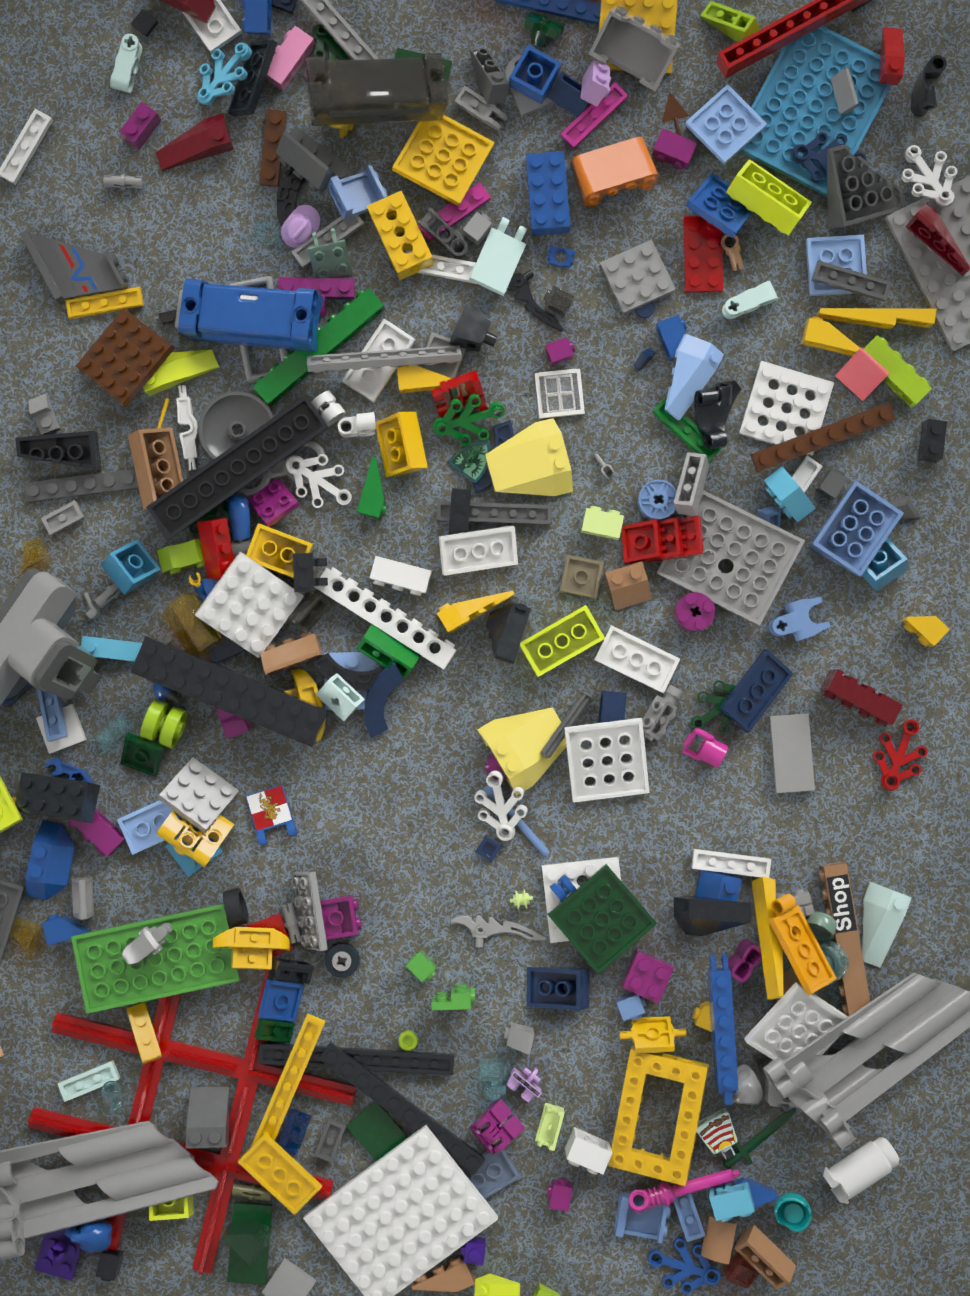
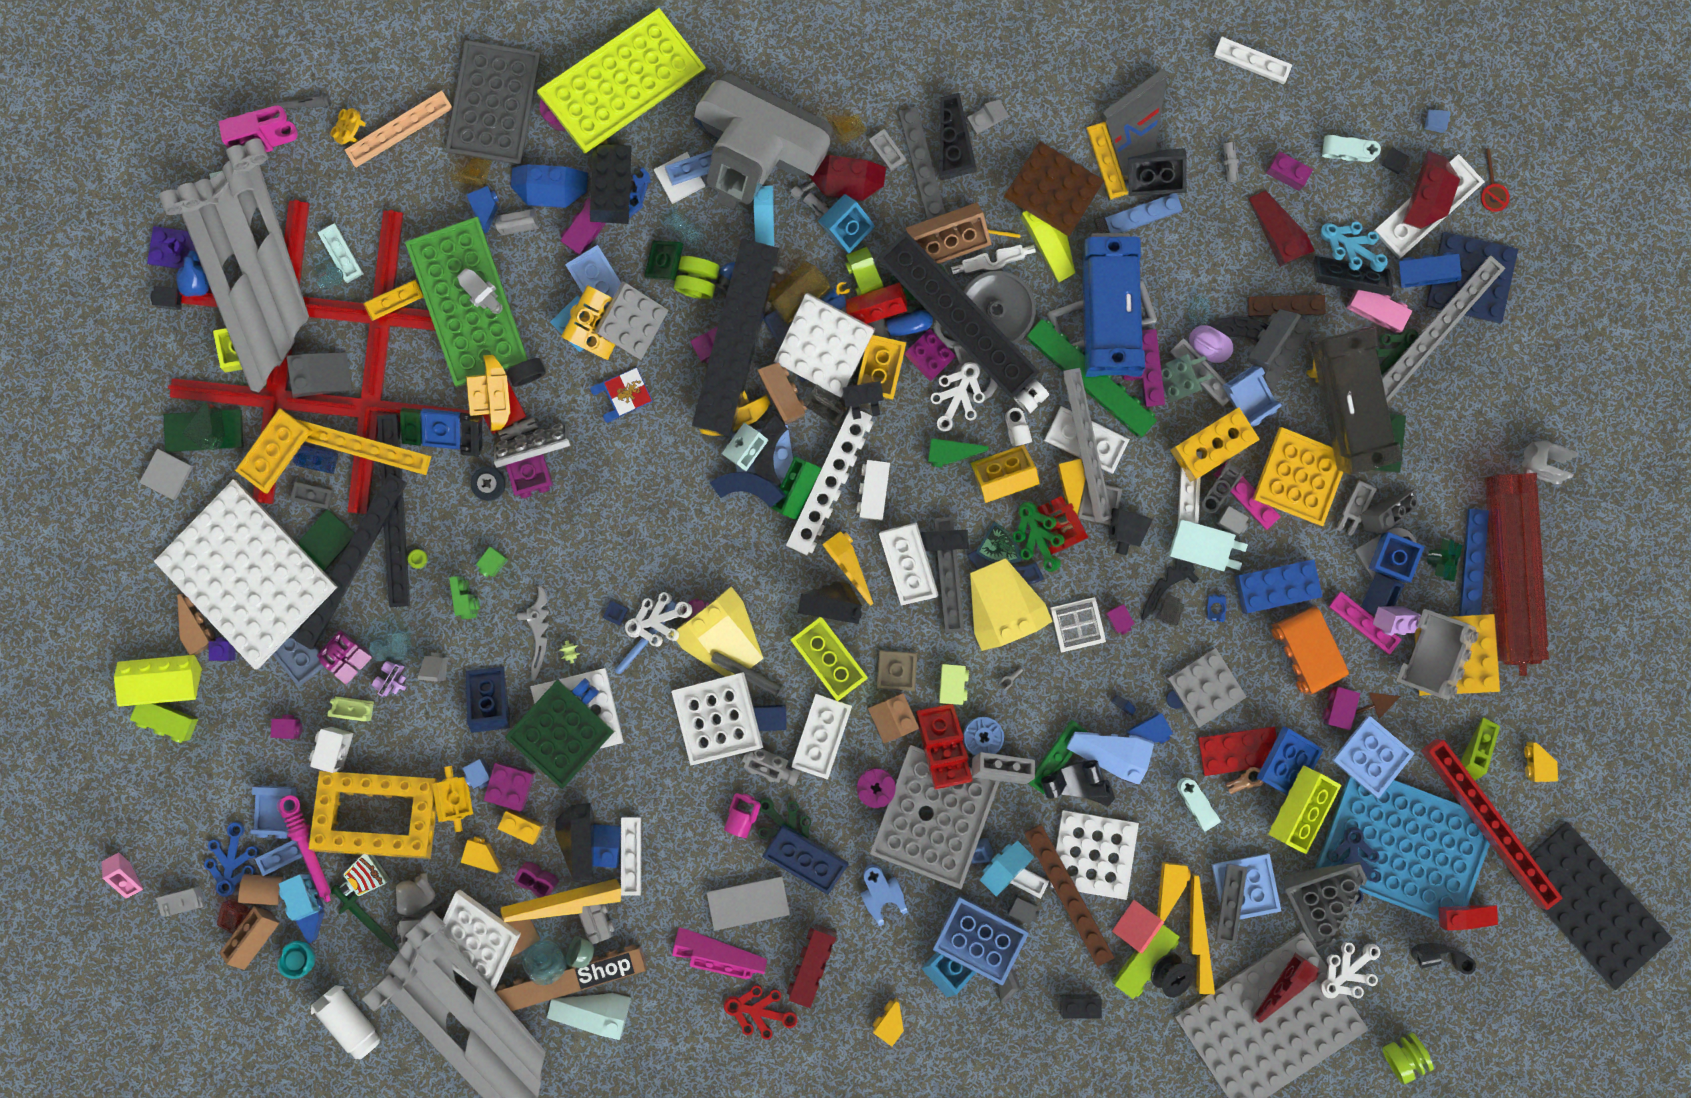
camera: 80 degrees right, 0 degrees up
(83, 559) = (848, 176): none -> dark red wedge
(123, 252) = (1158, 173): none -> black slope
(162, 273) = (1144, 214): none -> medium blue plate
(251, 1192) = (252, 425): olive pin -> none
(688, 969) = (520, 826): none -> yellow brick
(722, 1029) = (466, 867): blue hinge -> none
(802, 947) = (554, 937): light orange hinge -> none
(839, 791) = (716, 955): none -> dark pink wedge
(844, 91) = (1423, 873): light grey slope -> none
(922, 348) = (1170, 983): none -> black piece

